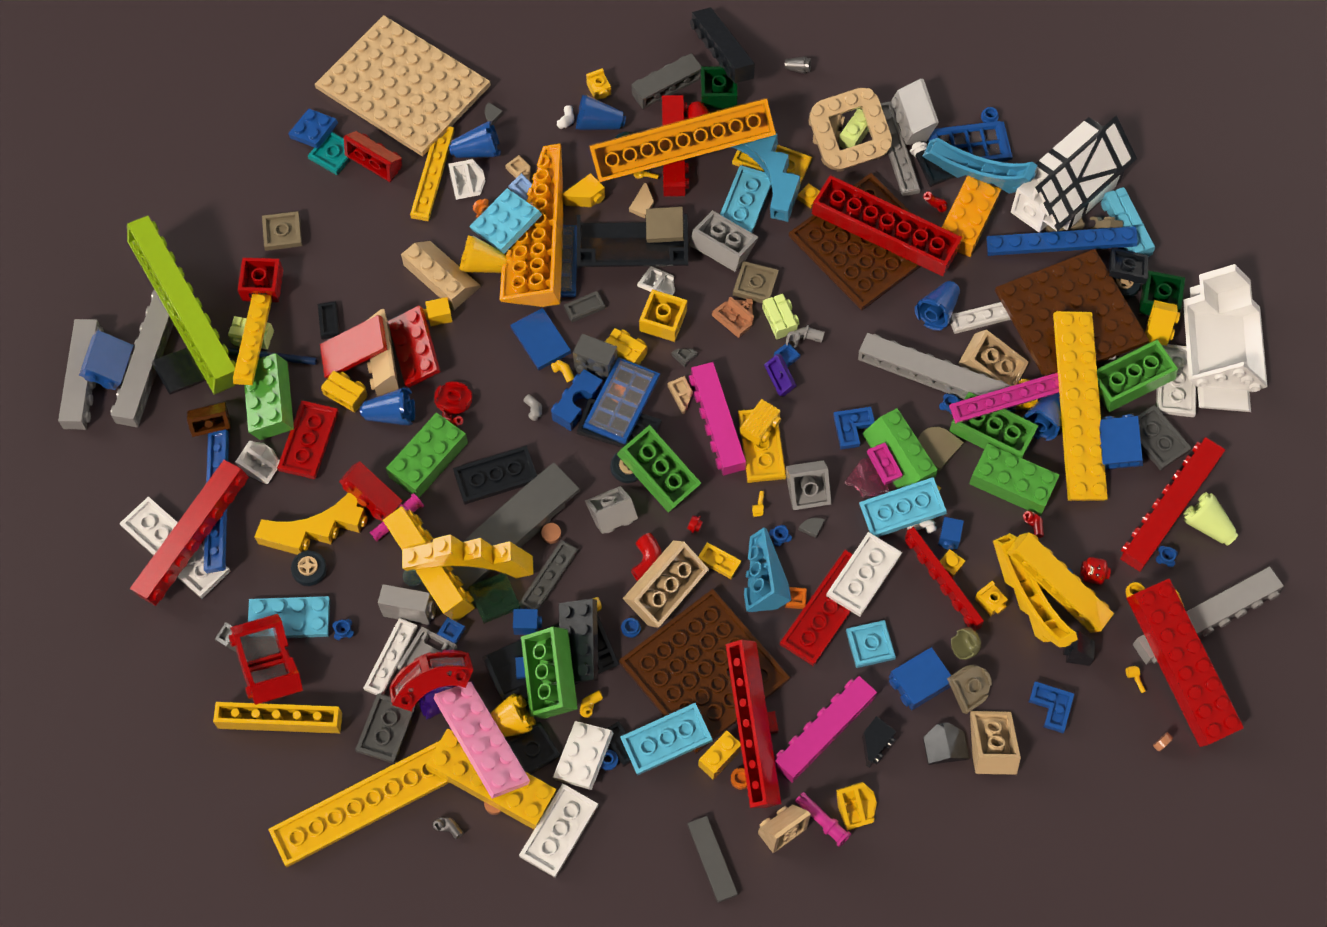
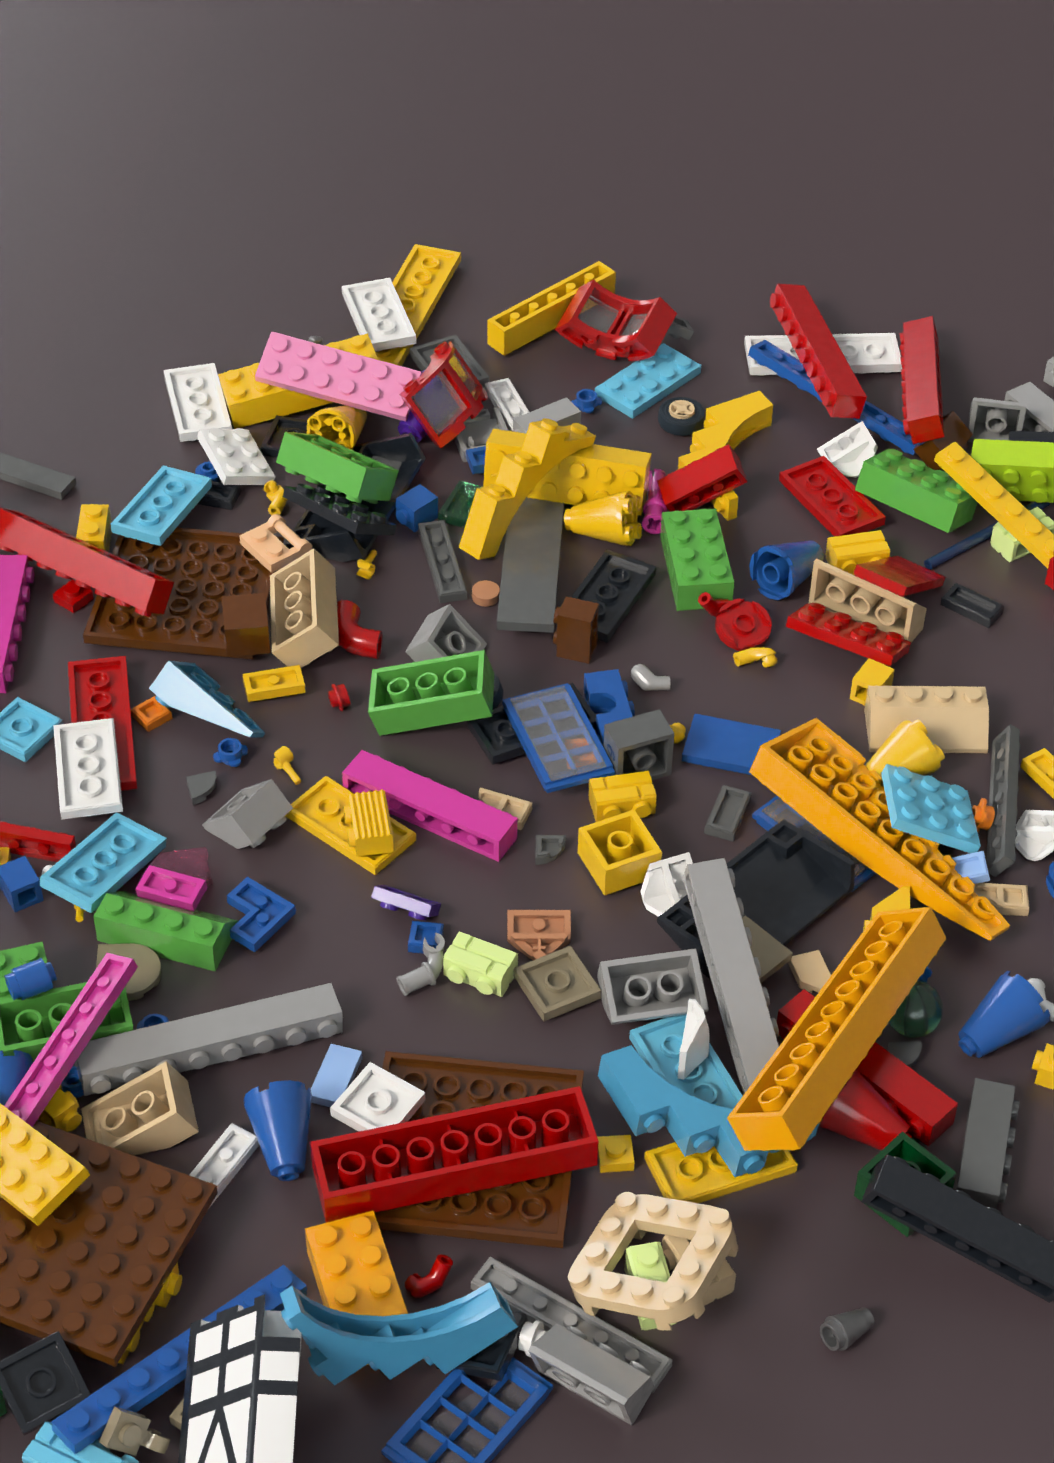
camera: 135 degrees right, 20 degrees down
(161, 410) = (995, 418): none -> light grey slope
(165, 461) = (921, 381): none -> brick
(385, 801) = (379, 313): none -> white plate
(440, 516) = (607, 518): none -> yellow cone
(460, 207) = (1003, 798): none -> dark grey plate
(466, 378) = (754, 654): none -> yellow arm
(543, 451) = (576, 629): none -> reddish brown brick
(638, 653) = (269, 549): none -> light nougat plate
(695, 199) = (732, 967): none -> light grey brick
(709, 590) = (246, 624): none -> reddish brown head
(738, 196) = (695, 1040): none -> white slope
(890, 319) = (335, 1074): none -> light blue tile
(892, 278) = (377, 1100): none -> white plate
(1000, 443) = (30, 979): none -> blue brick

